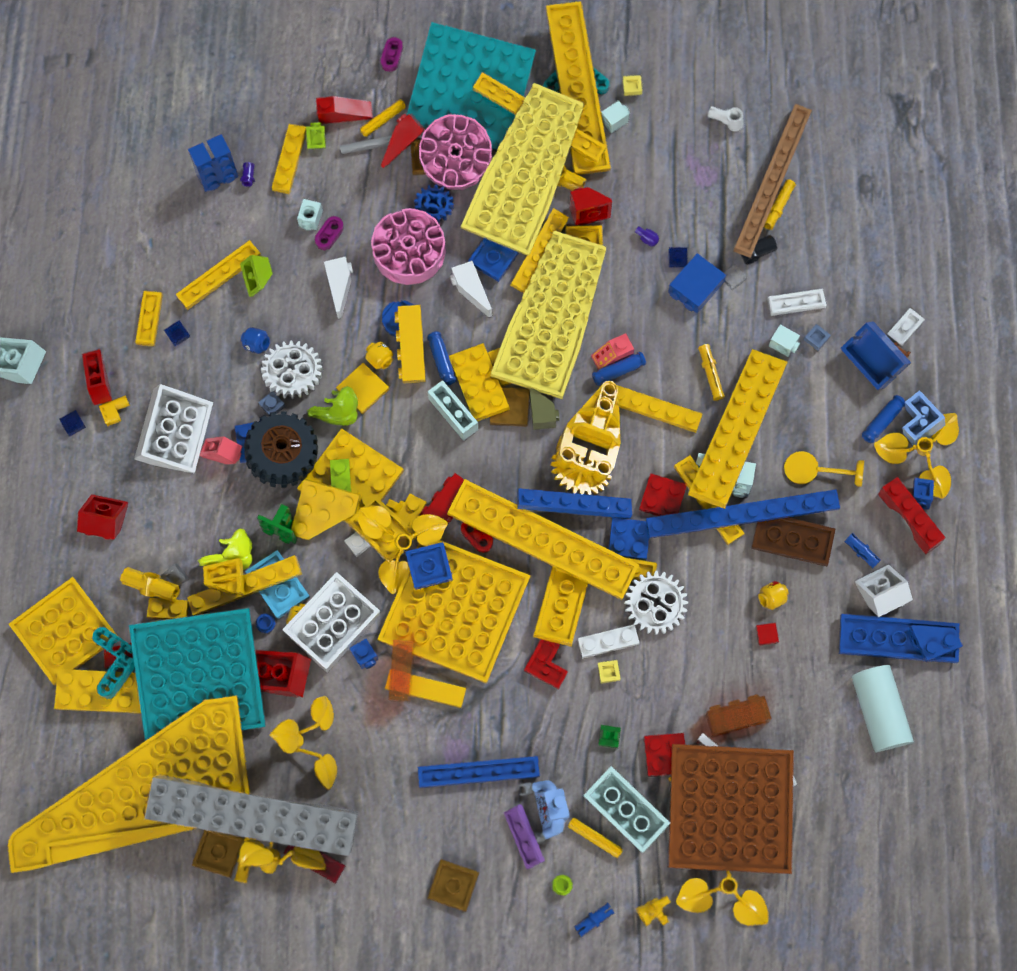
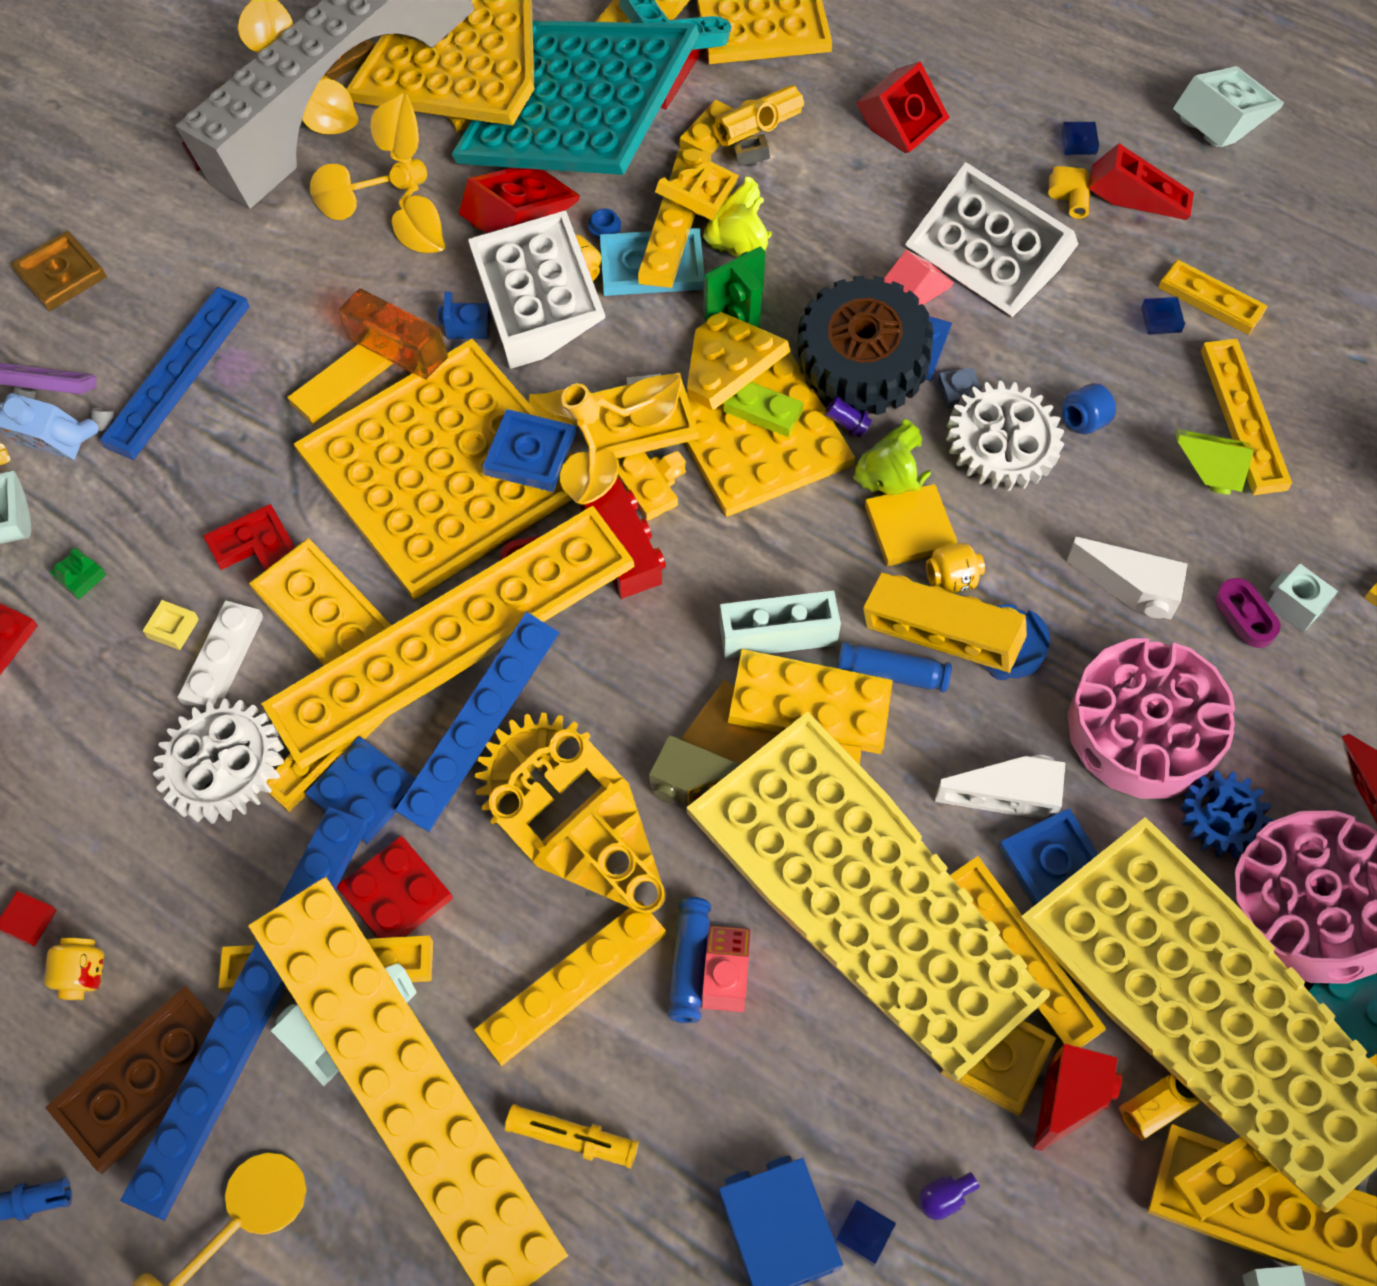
camera: 120 degrees right, 10 degrees down
(322, 438) = (848, 417): none -> dark purple pin

